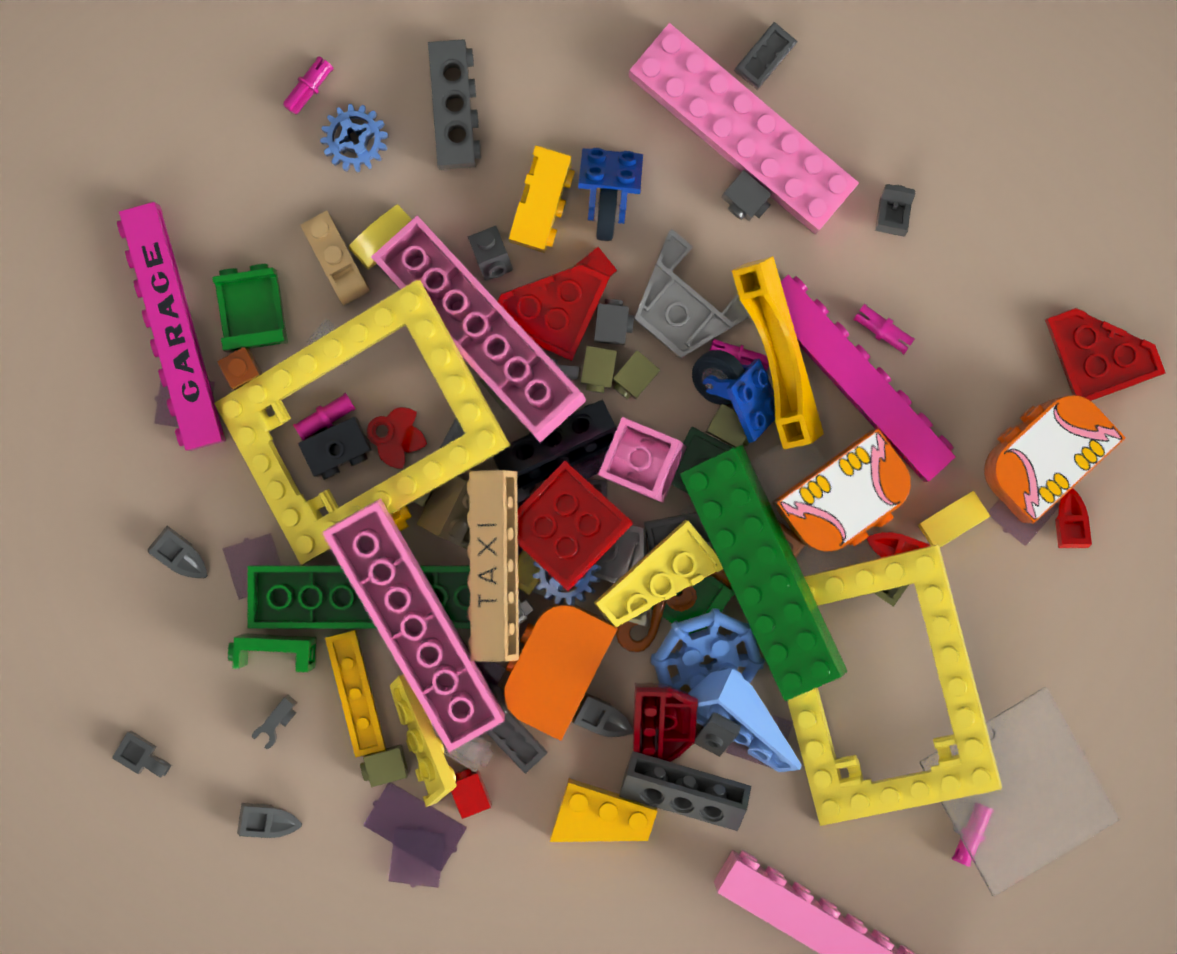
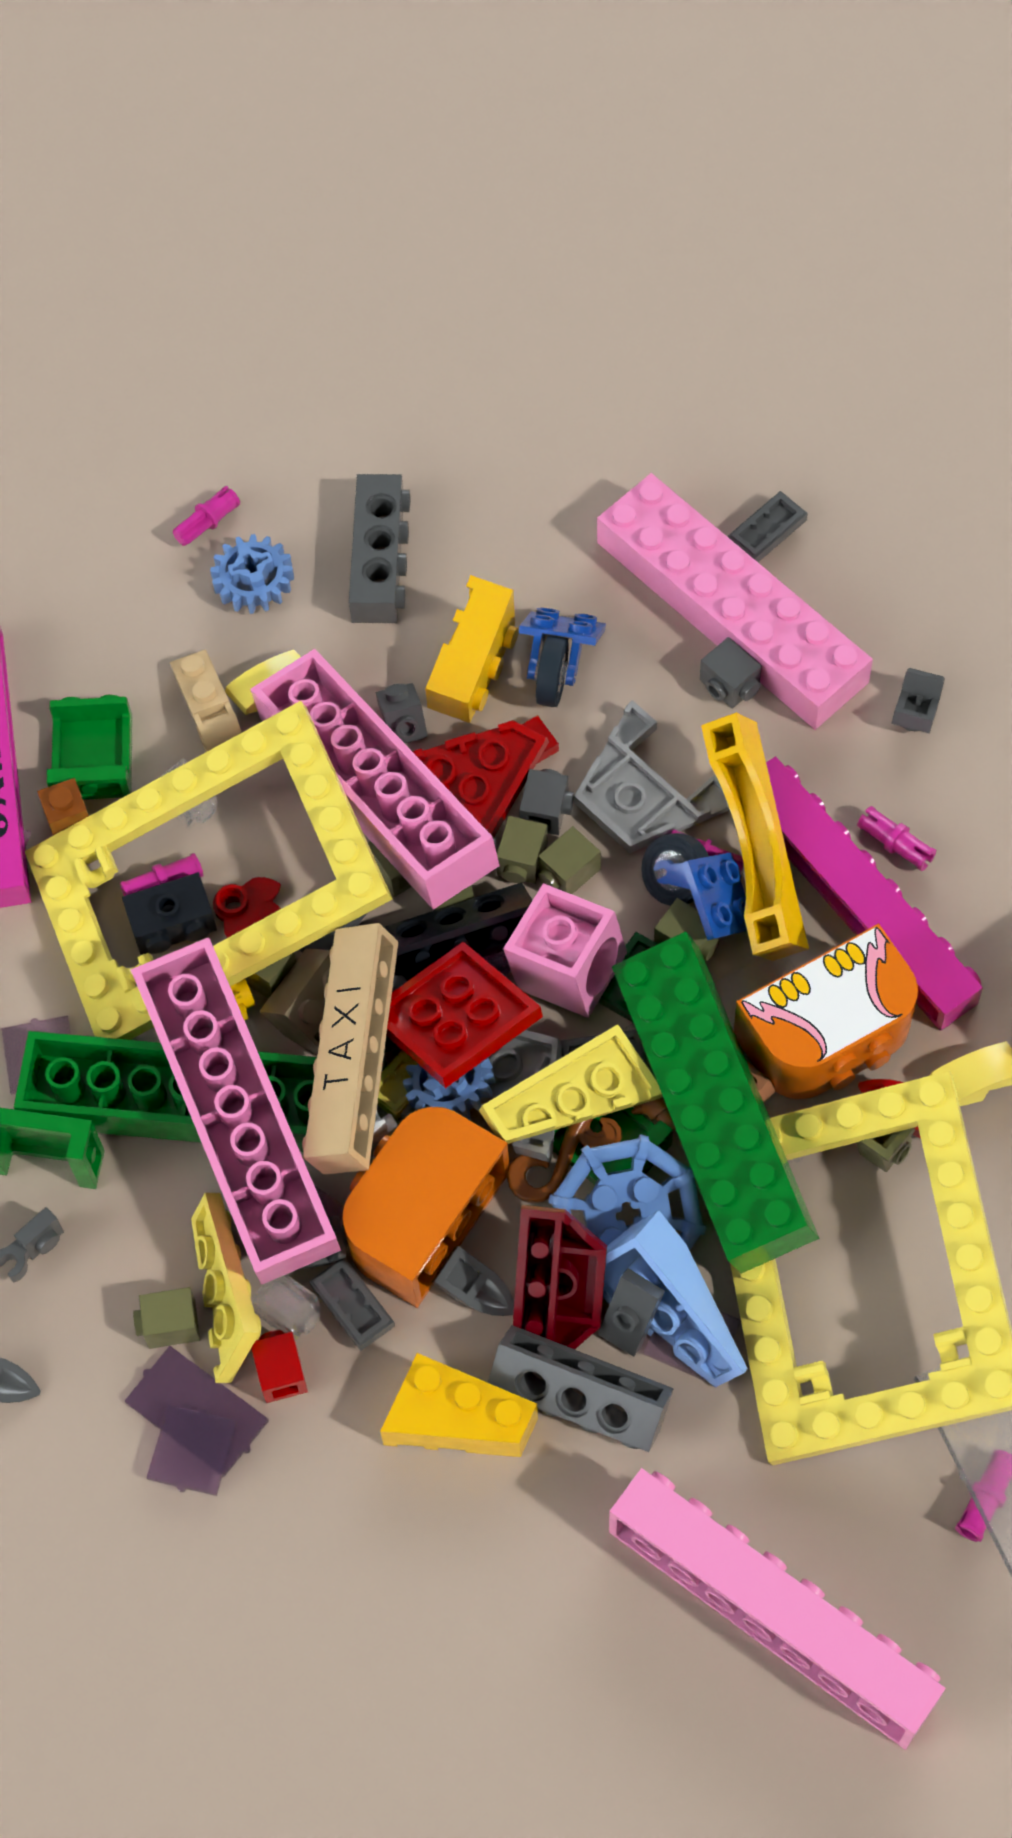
camera: 10 degrees right, 25 degrees down
(355, 693) = (143, 1218): yellow plate -> none

